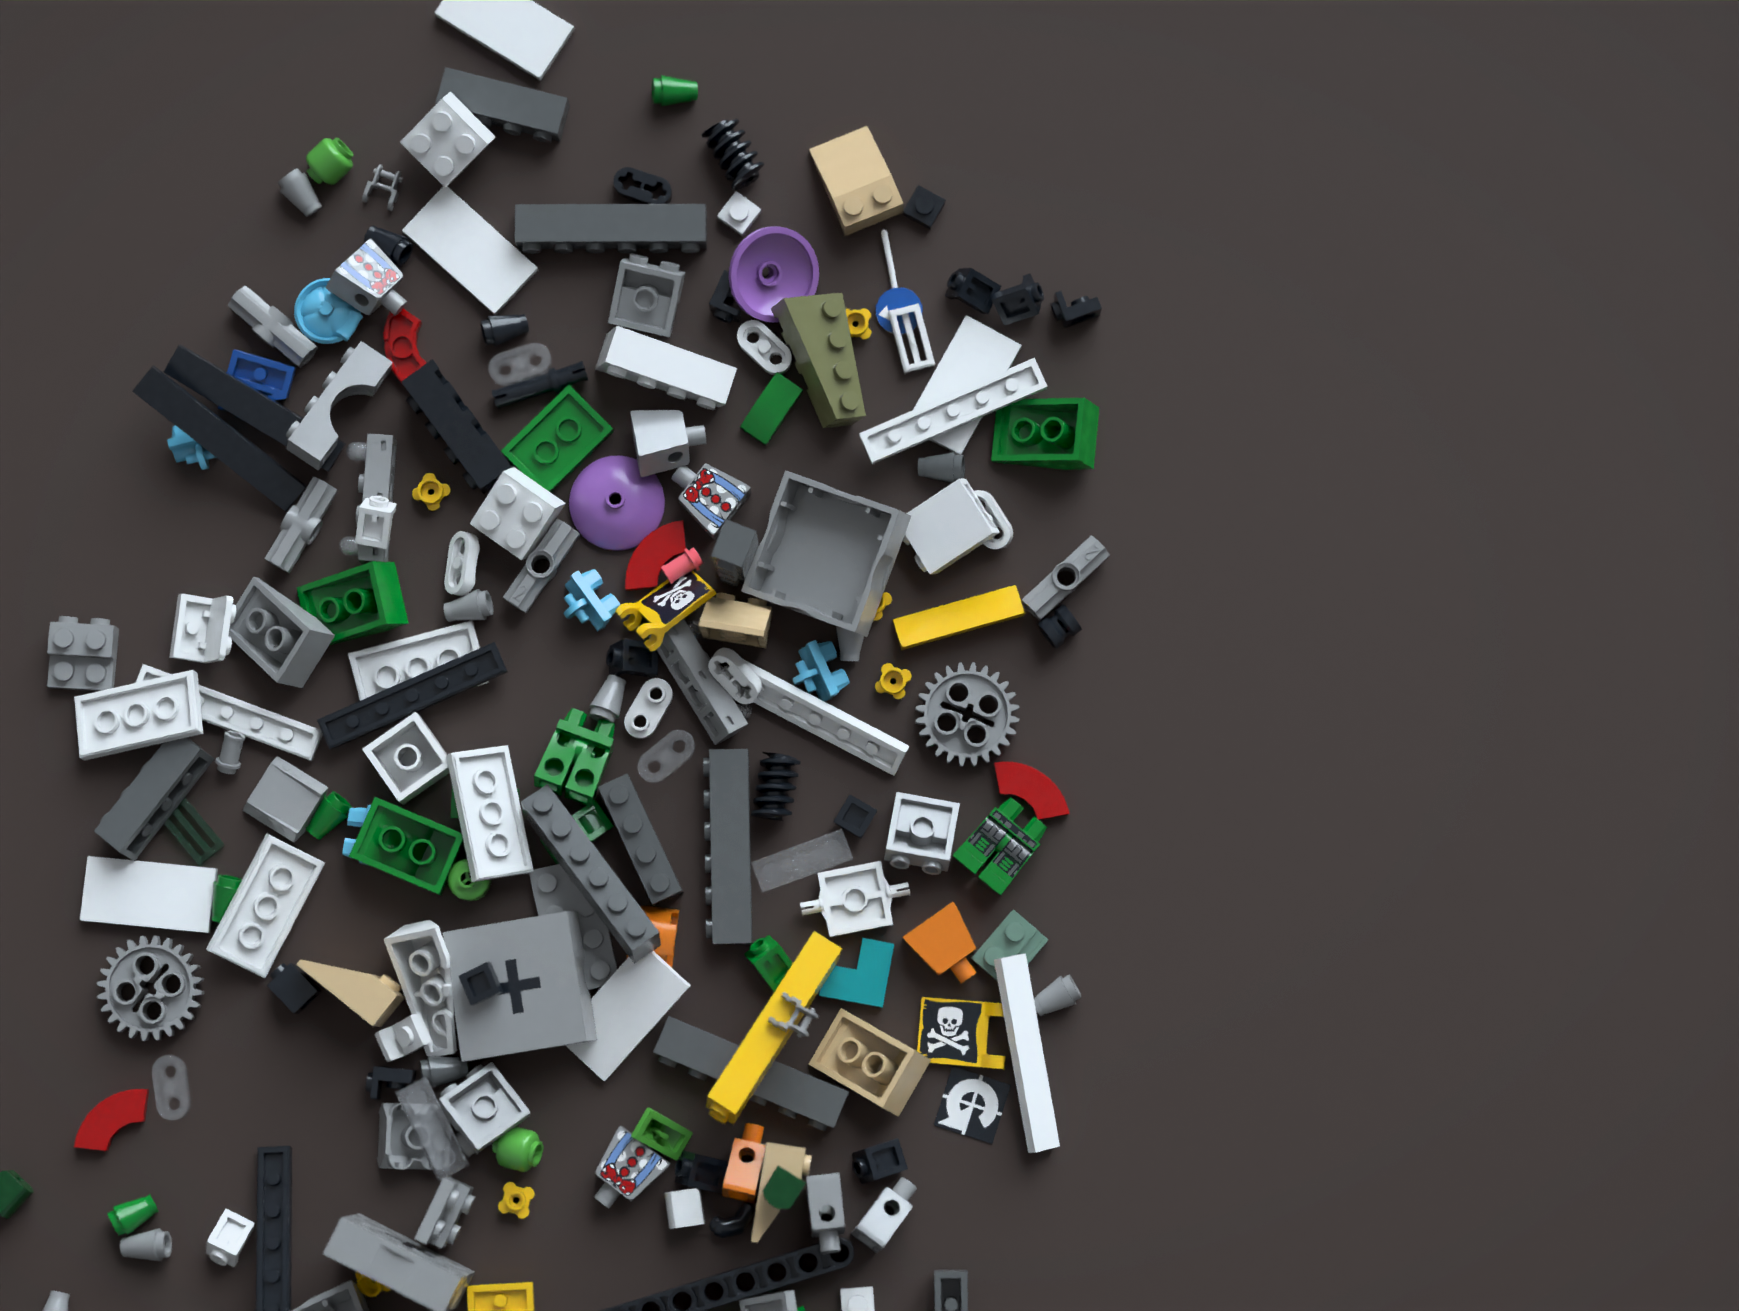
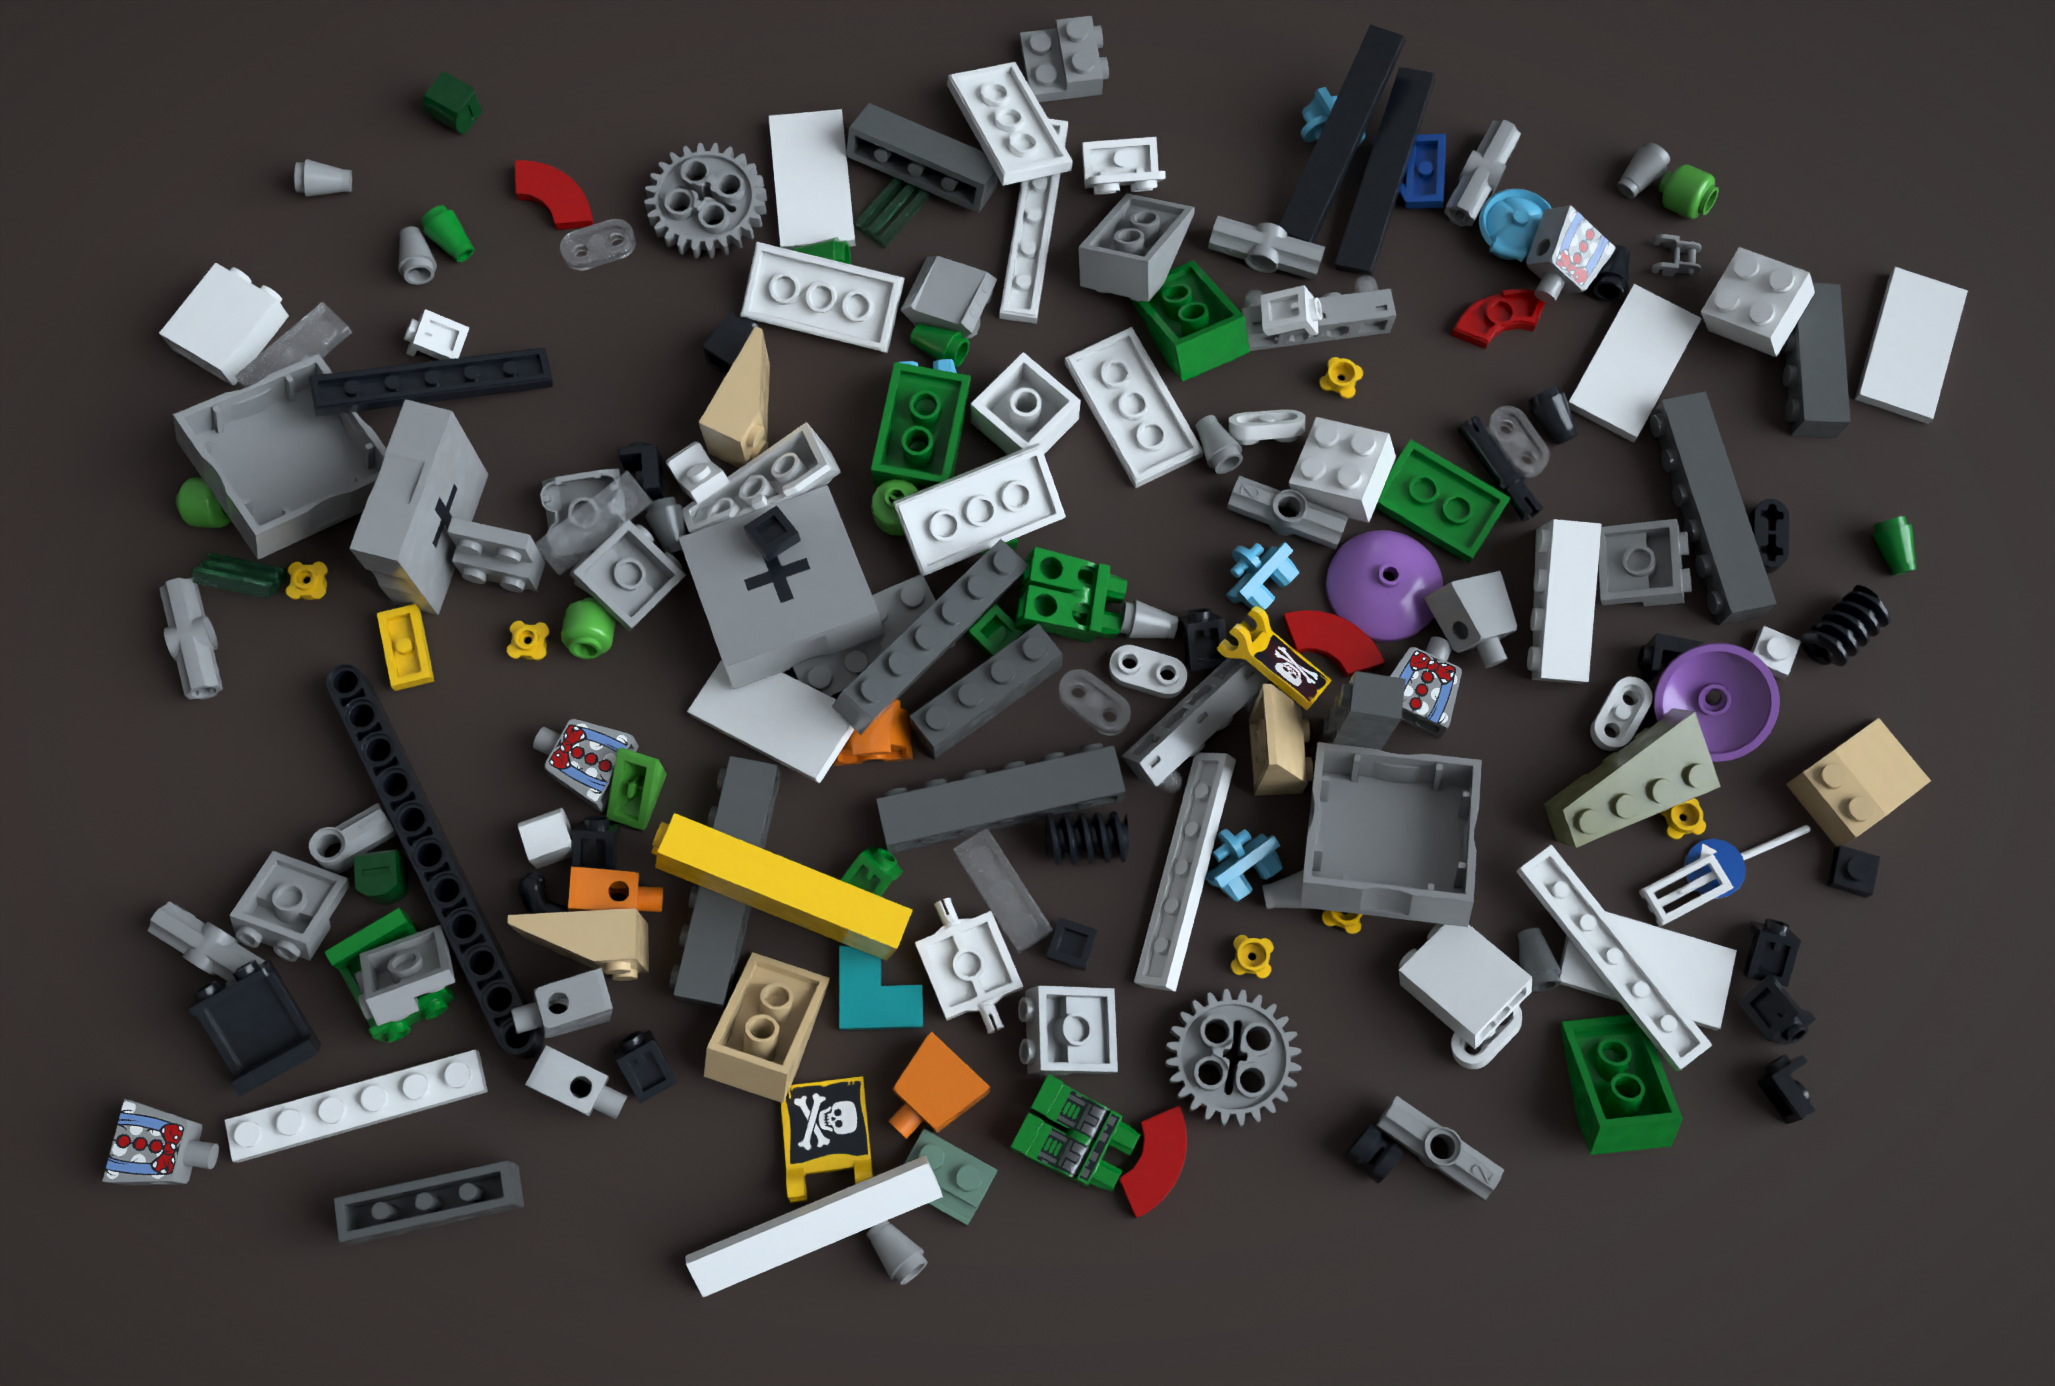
camera: 75 degrees right, 10 degrees down
(230, 752) = (988, 227): light grey pin -> none
(360, 375) = (1456, 269): arch -> none
(412, 696) = (1100, 403): black tile -> none
(456, 426) = (1431, 376): black wedge -> none
(682, 565) = (1329, 670): coral pin -> none
(735, 676) = (1211, 757): white beam -> none
(771, 408) = (1549, 736): green slope -> none
(782, 1188) = (576, 936): dark green piece -> none
(802, 1029) = (791, 918): light grey piece -> none
(958, 617) = (1352, 1022): yellow slope -> none
(972, 1105) = (737, 1171): sticker -> none

